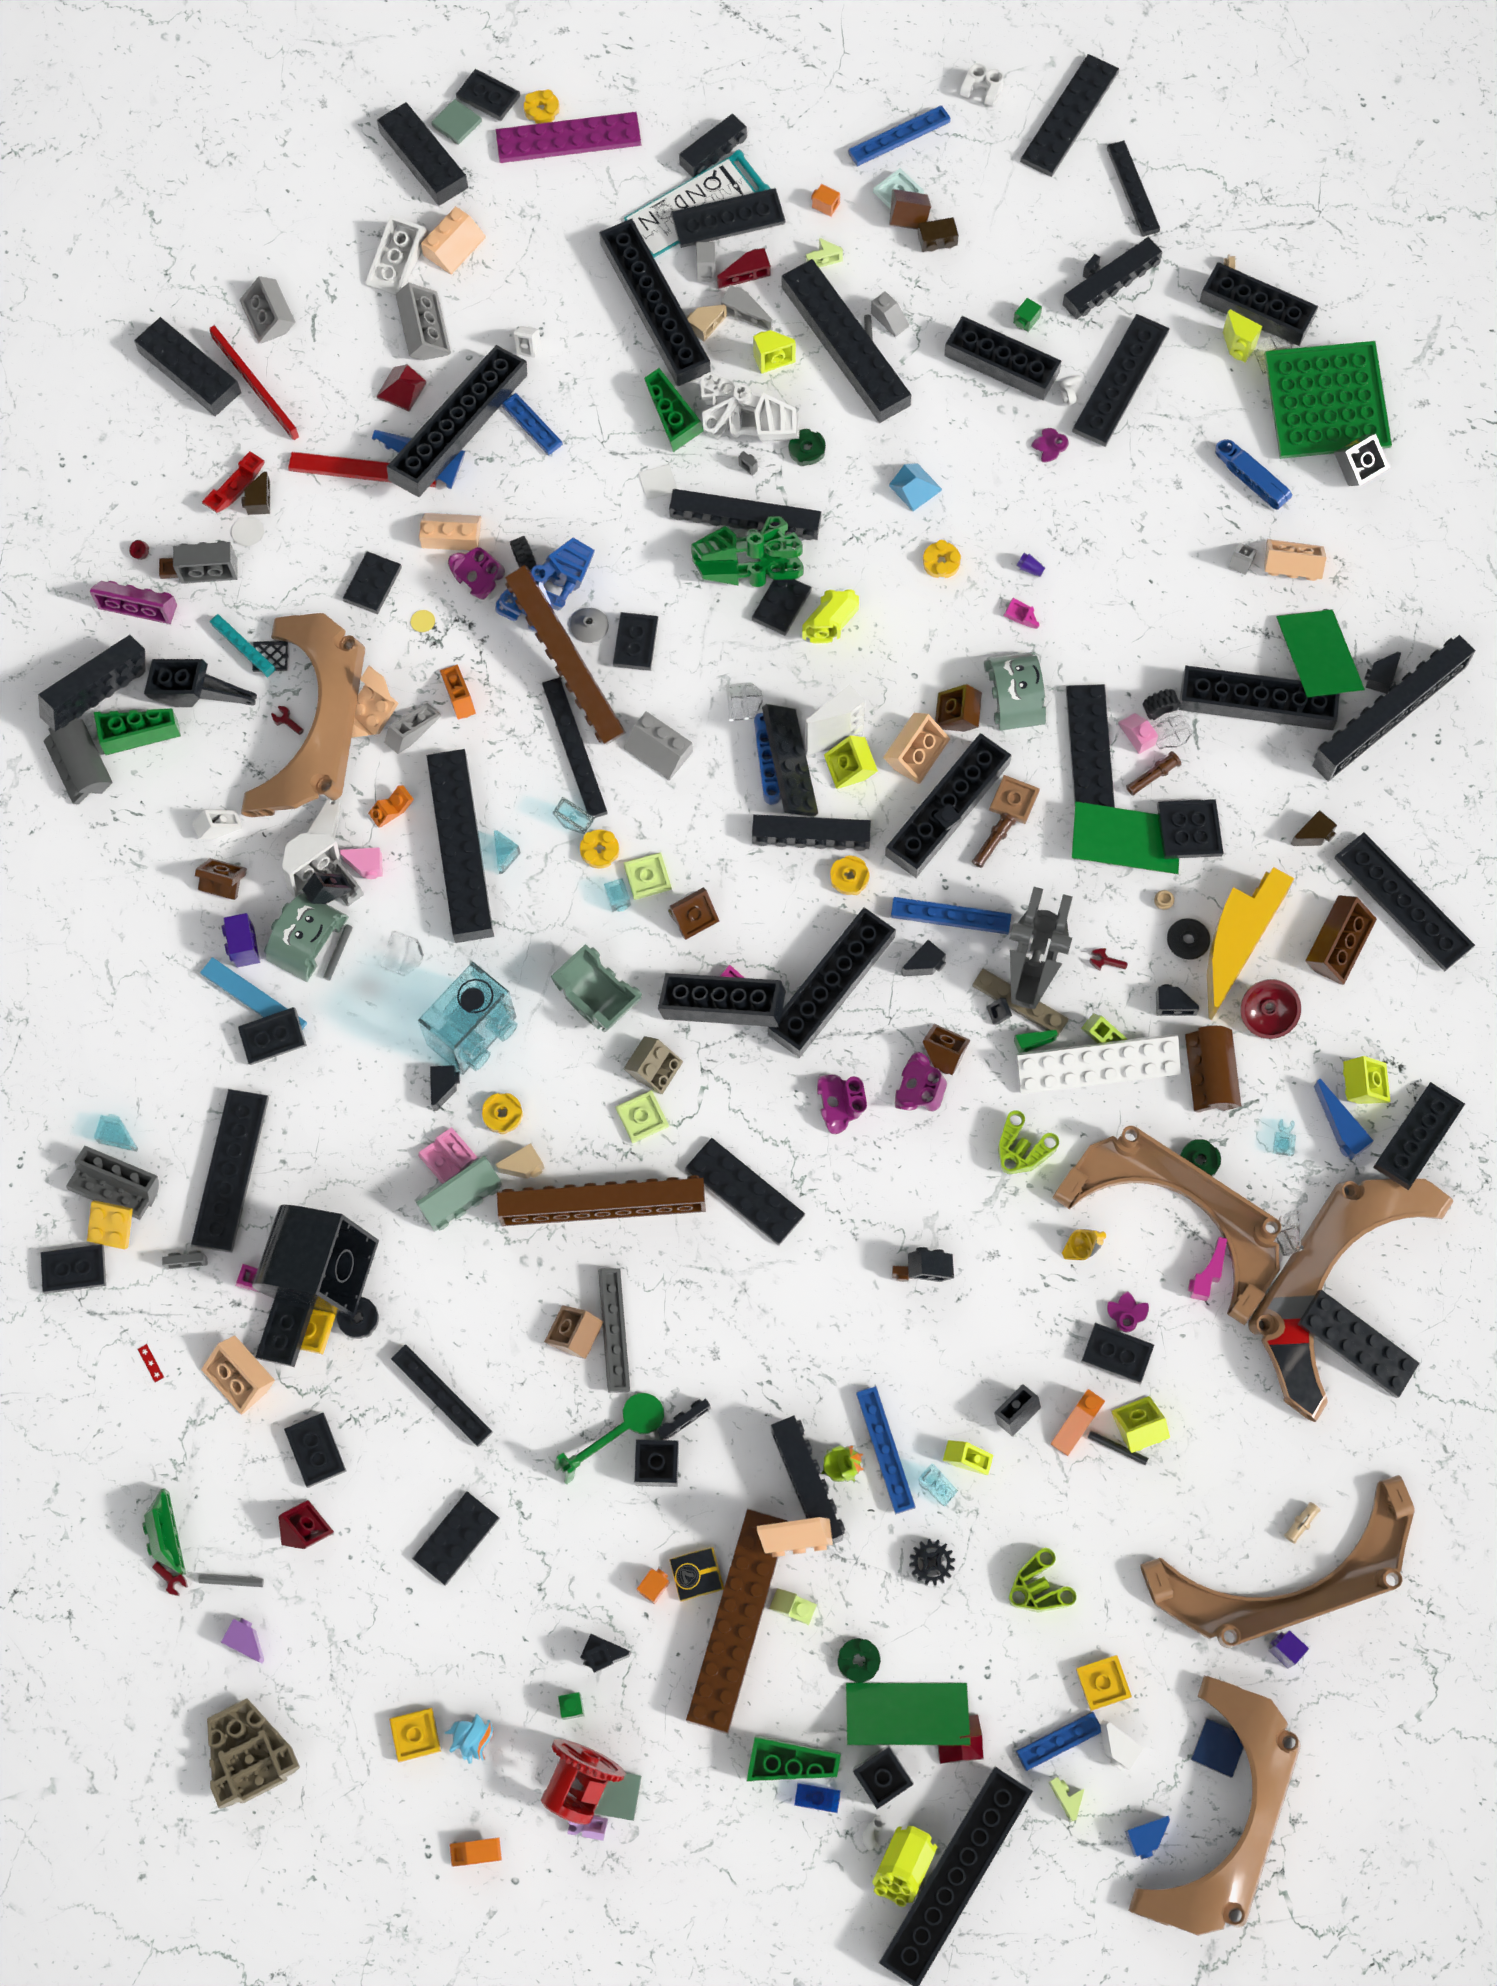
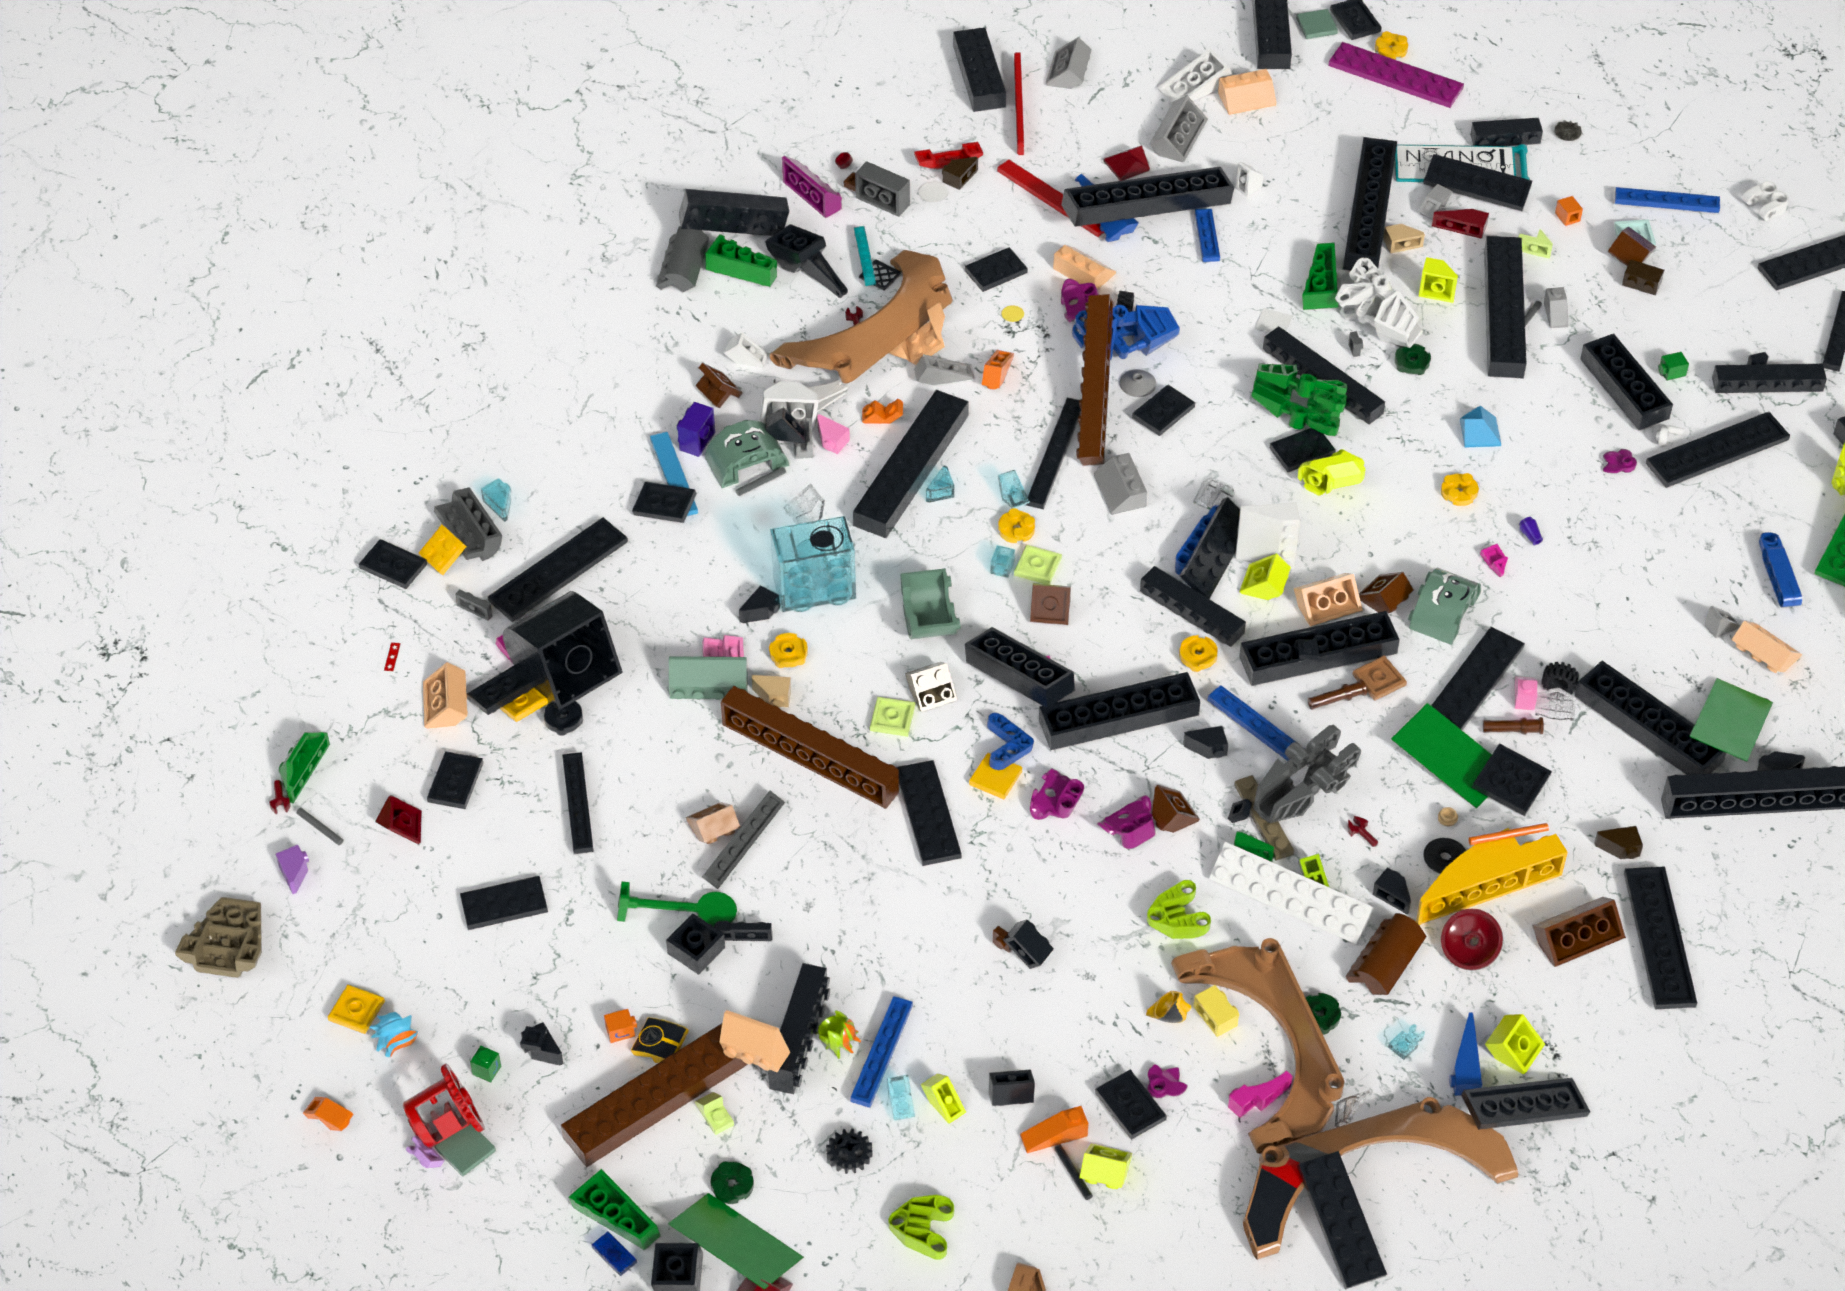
camera: 35 degrees right, 20 degrees down
(745, 308) = (1439, 243): light grey slope -> none
(767, 113) = (1568, 135): none -> clear smoke gear
(768, 1074) = (1020, 743): none -> blue beam
(773, 1115) = (995, 781): none -> yellow tile
(1120, 1217) = (1216, 1010): none -> light yellow brick
(1239, 894) = (1508, 834): none -> orange bar

